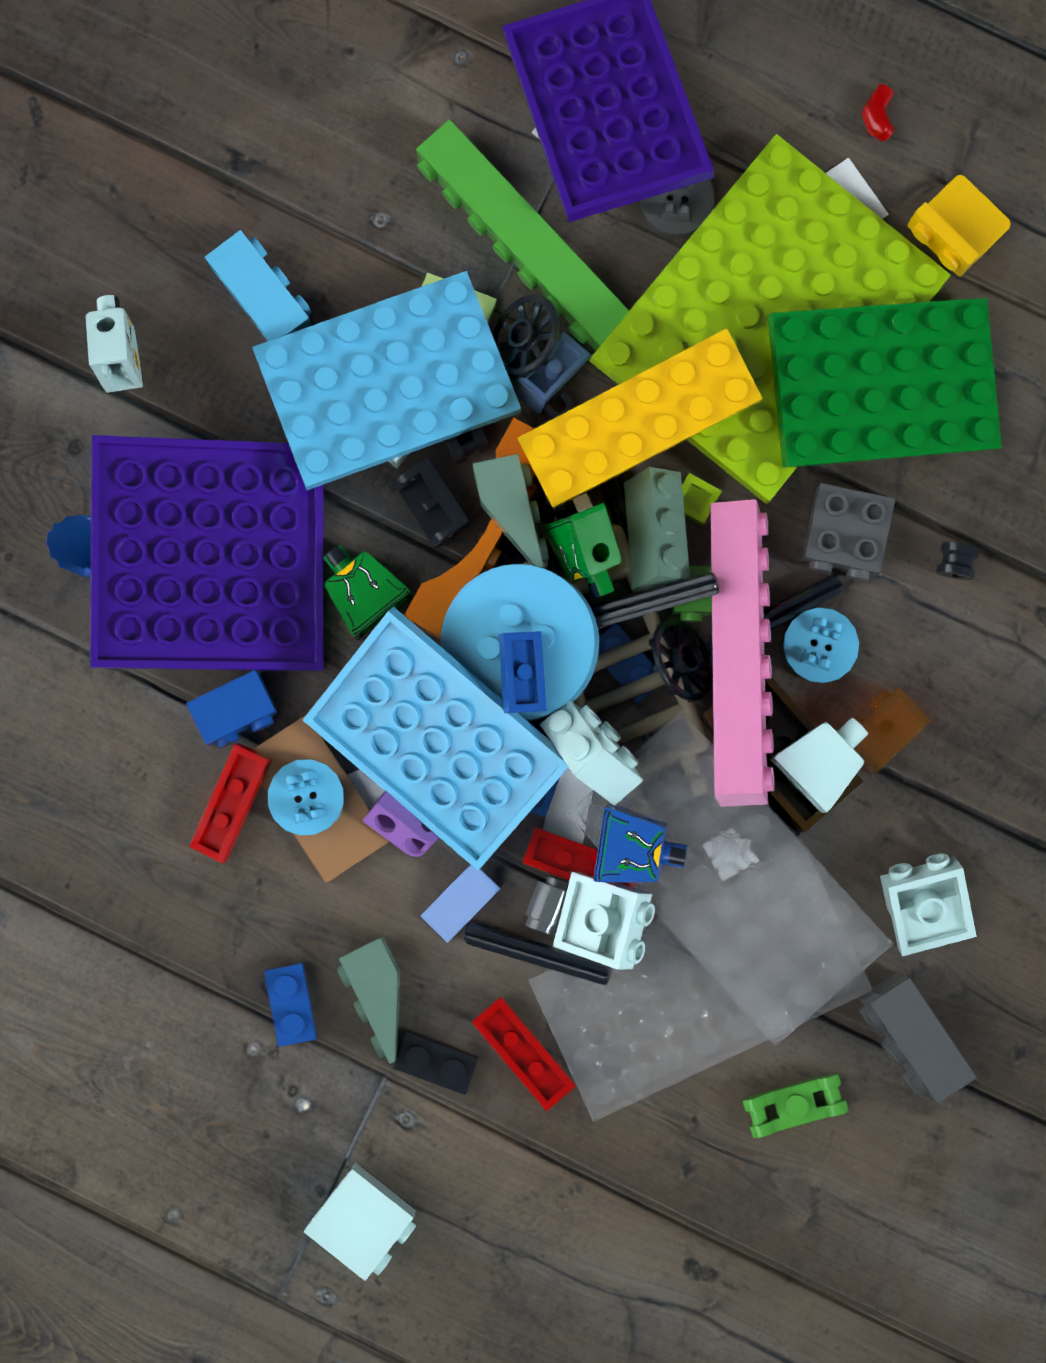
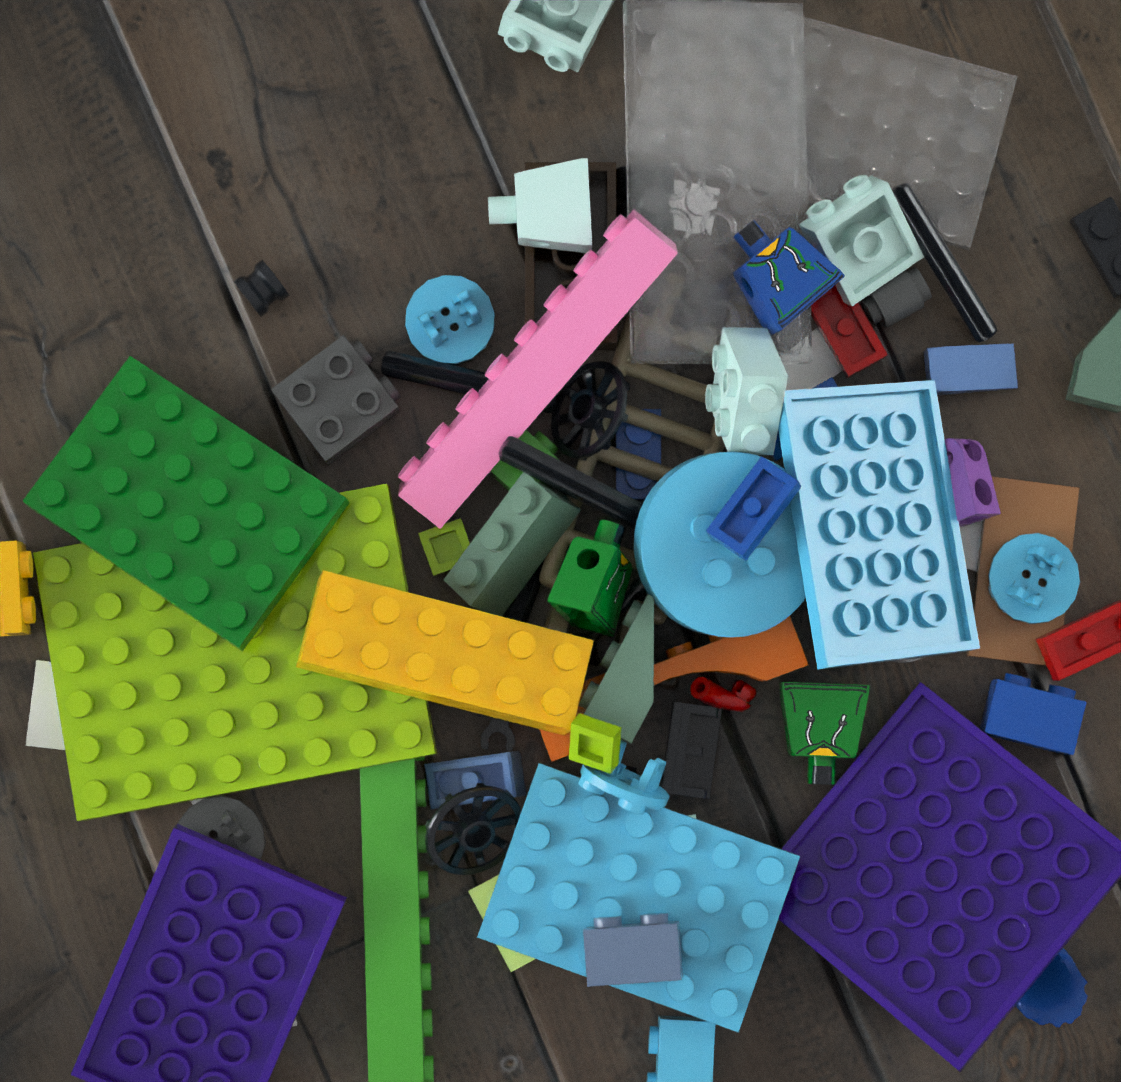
camera: 150 degrees left, 0 degrees up
(360, 335) = (632, 951): none -> sand blue brick
(439, 554) = (721, 698): none -> red arm
(455, 438) = (634, 790): none -> medium azure plate
(495, 442) = (595, 743): none -> lime plate
(523, 1053) = (1028, 188): red plate -> none
(889, 728) = (458, 195): clear orange brick -> none

